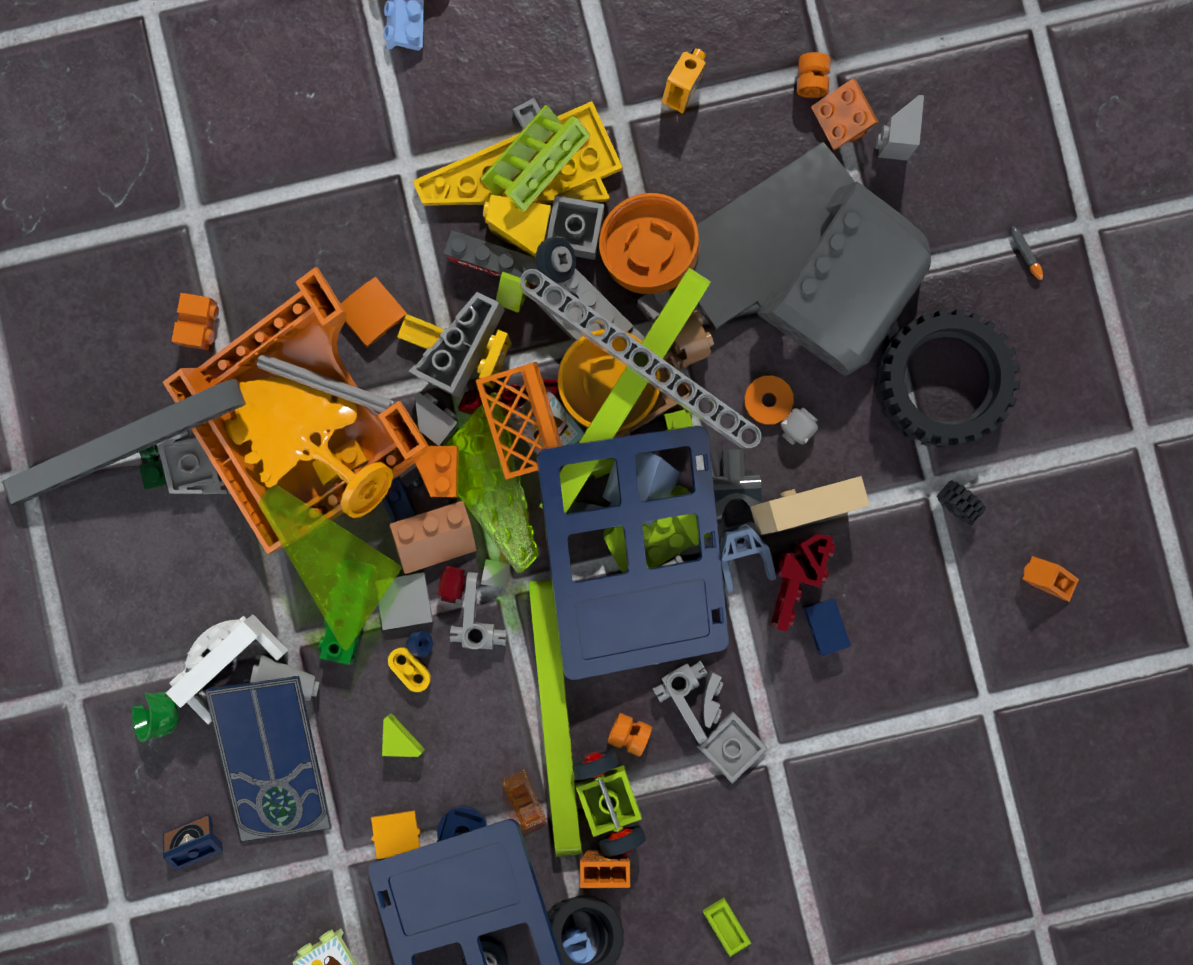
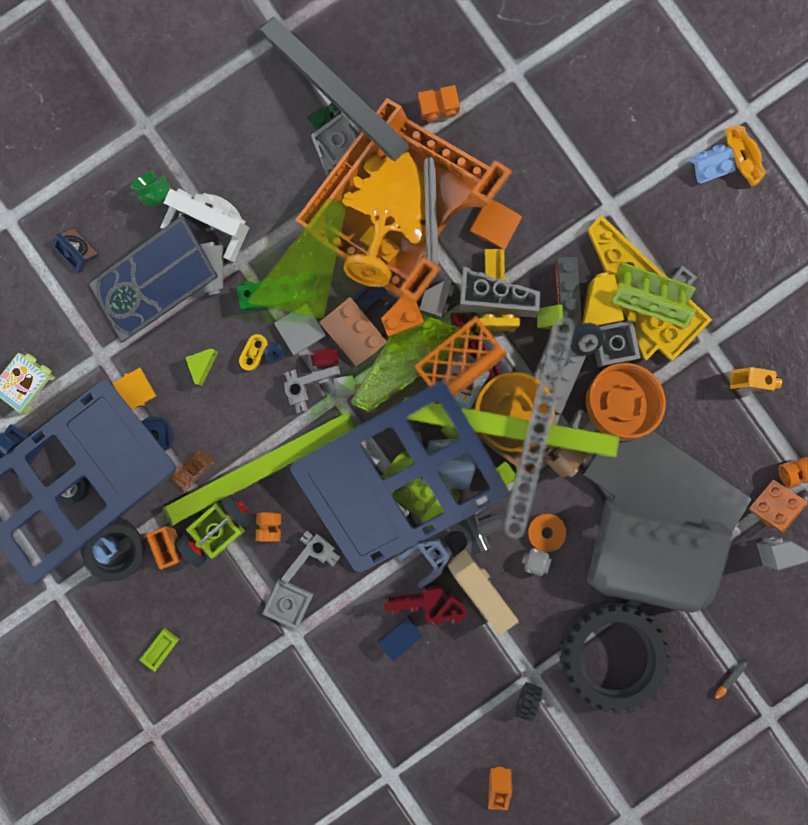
camera: 65 degrees right, 0 degrees up
(710, 707) = (308, 578): light grey slope -> none

